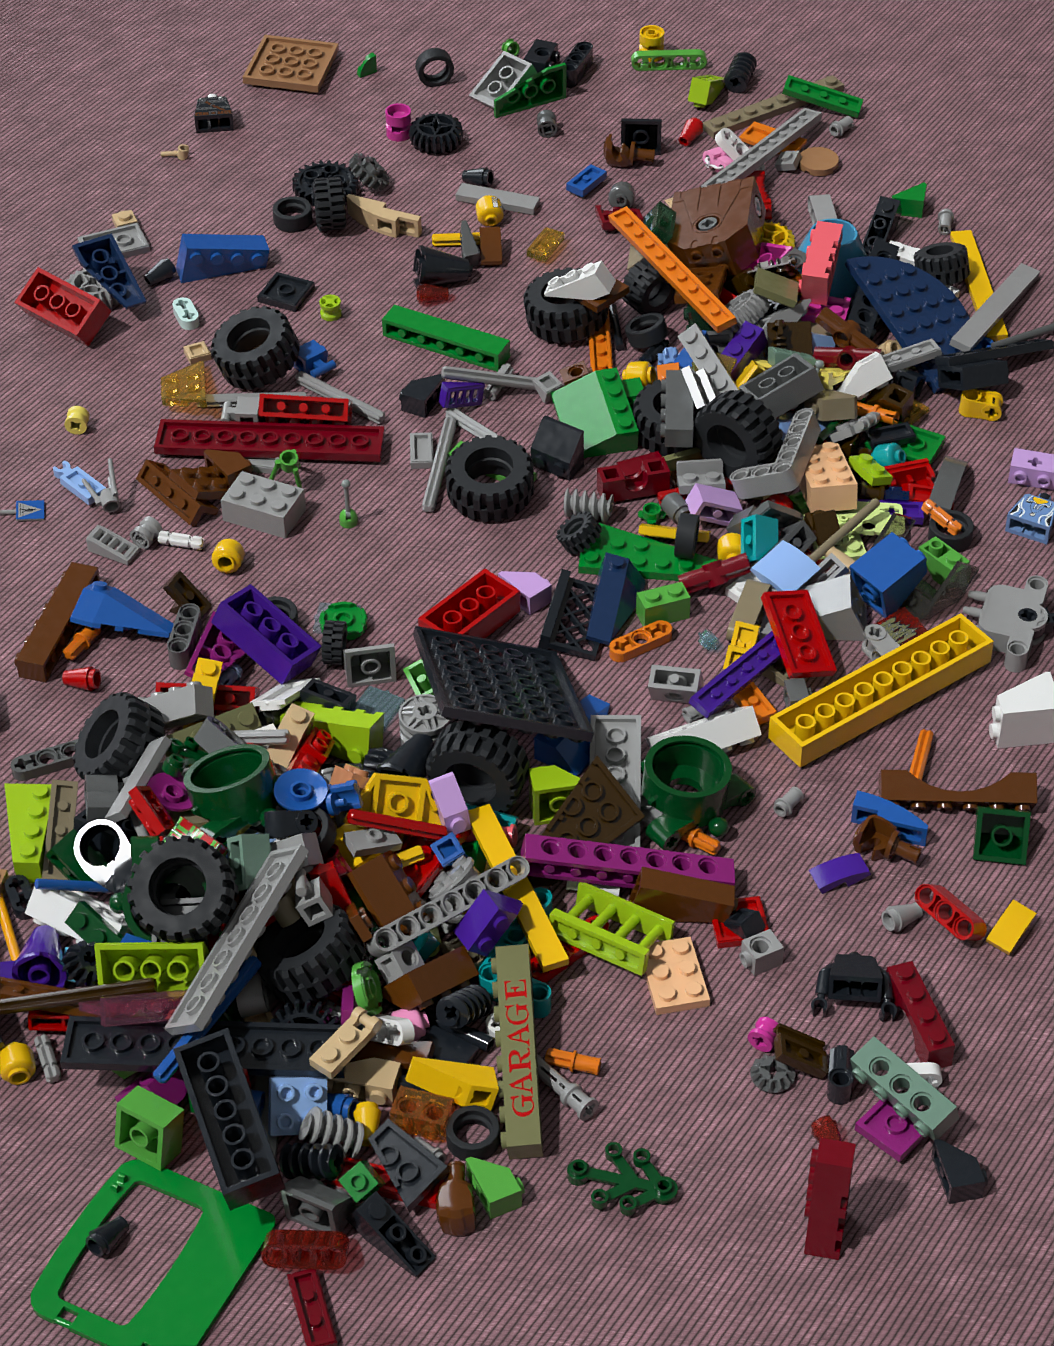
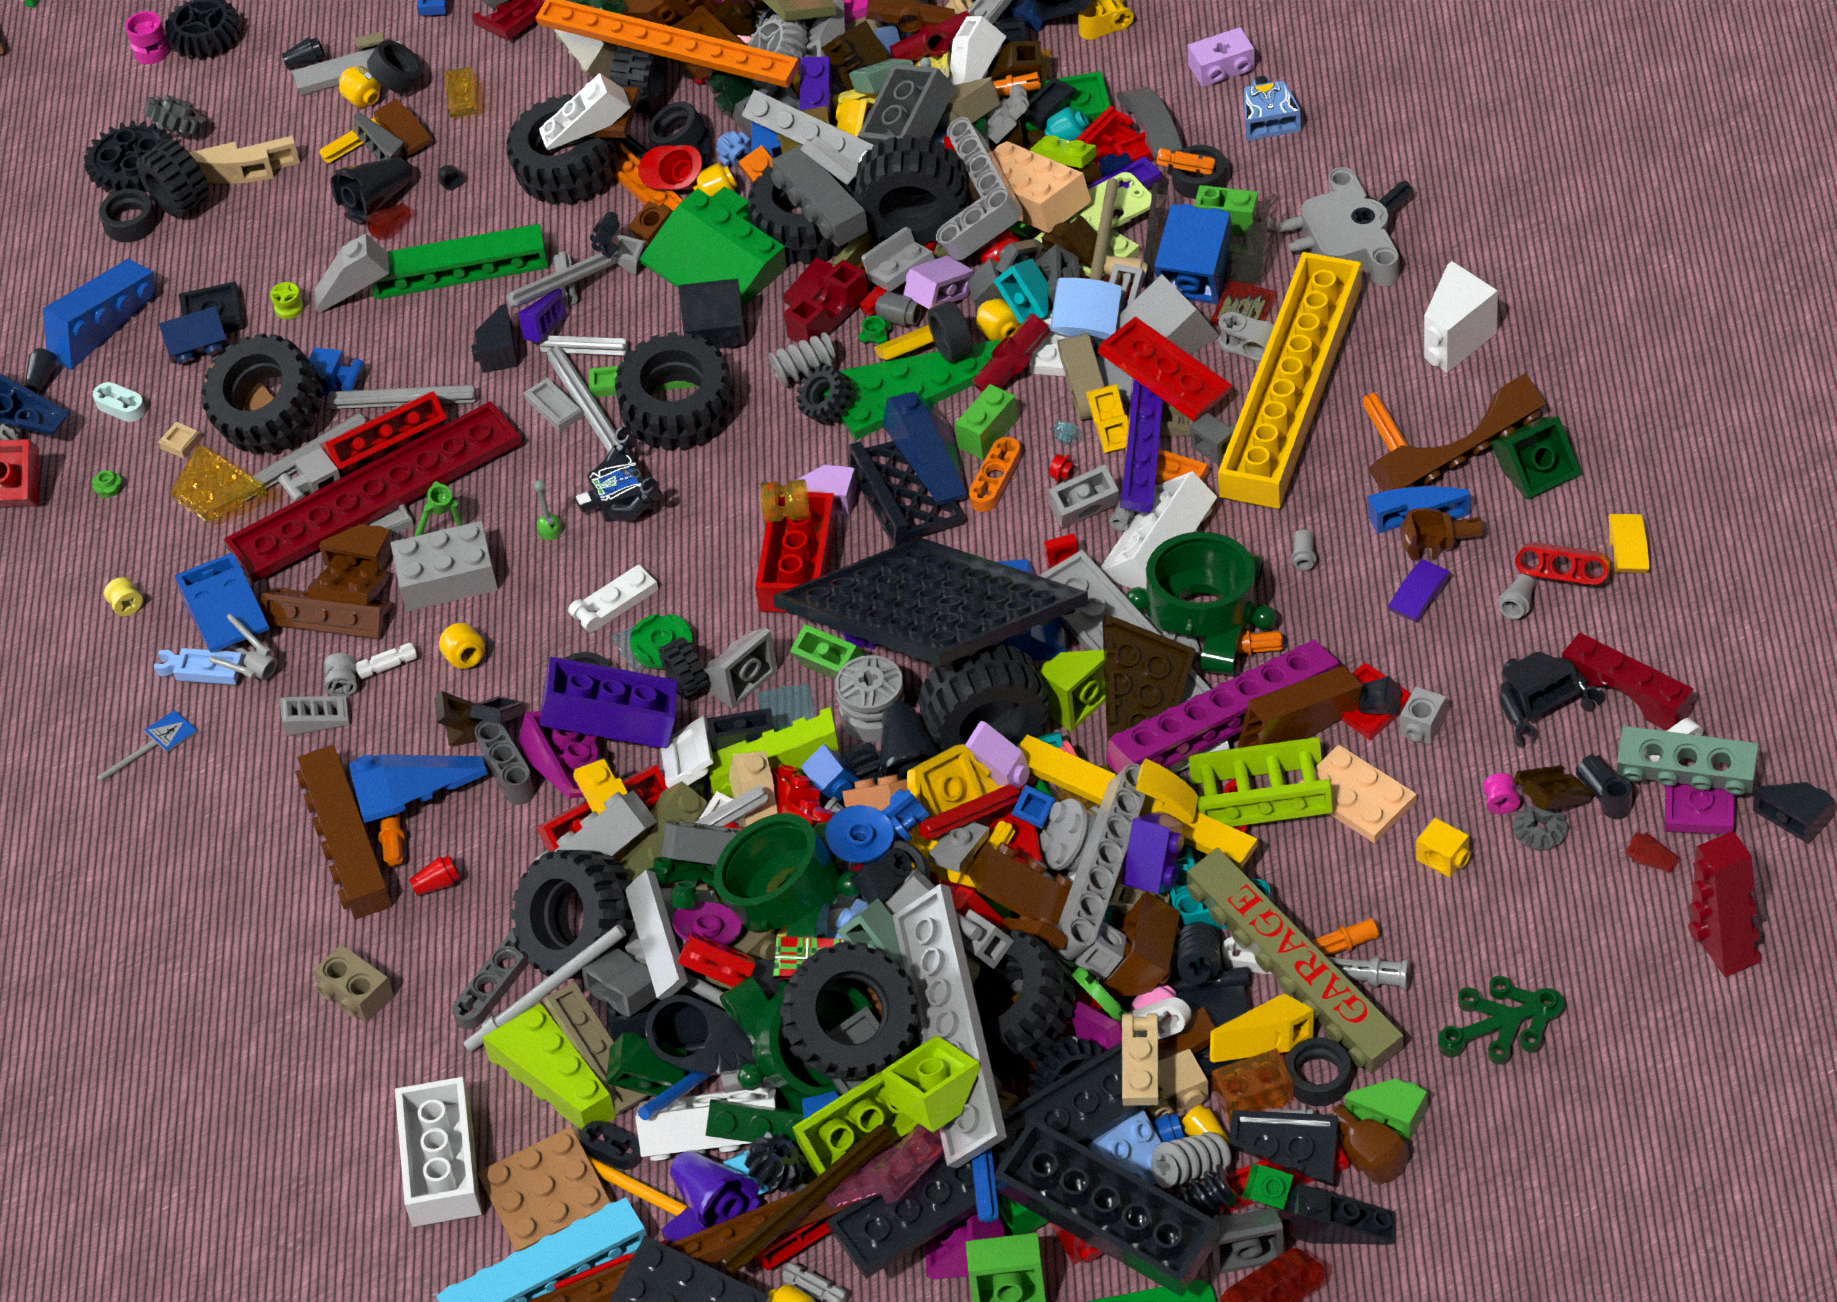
camera: 30 degrees left, 5 degrees up
(68, 773) = (546, 986): none -> light grey bar
(127, 447) = (213, 593): none -> blue slope
(134, 354) = (107, 484): none -> bright green plate
(191, 967) = (931, 1082): none -> lime slope
(202, 601) = (498, 709): none -> black tile
(256, 293) = (193, 335): none -> dark blue brick
(342, 581) = (613, 599): none -> white plate
(347, 749) = (830, 772): none -> brick
(377, 307) = (353, 269): none -> light grey slope
(407, 517) = (618, 484): none -> black torso
(479, 575) = (796, 500): none -> clear yellow wheel
(492, 290) = (449, 177): none -> black hinge
(508, 213) = (382, 70): none -> black tyre
(520, 188) = (368, 41): none -> dark tan tile
(534, 890) = (1176, 795): none -> yellow slope
(542, 366) = (606, 234): none -> black piece
(619, 350) = (670, 167): none -> red piece
(633, 707) = (1060, 549): none -> red tile
(684, 659) = (1061, 468): none -> red plate
(692, 1044) = (1443, 848): none -> yellow brick

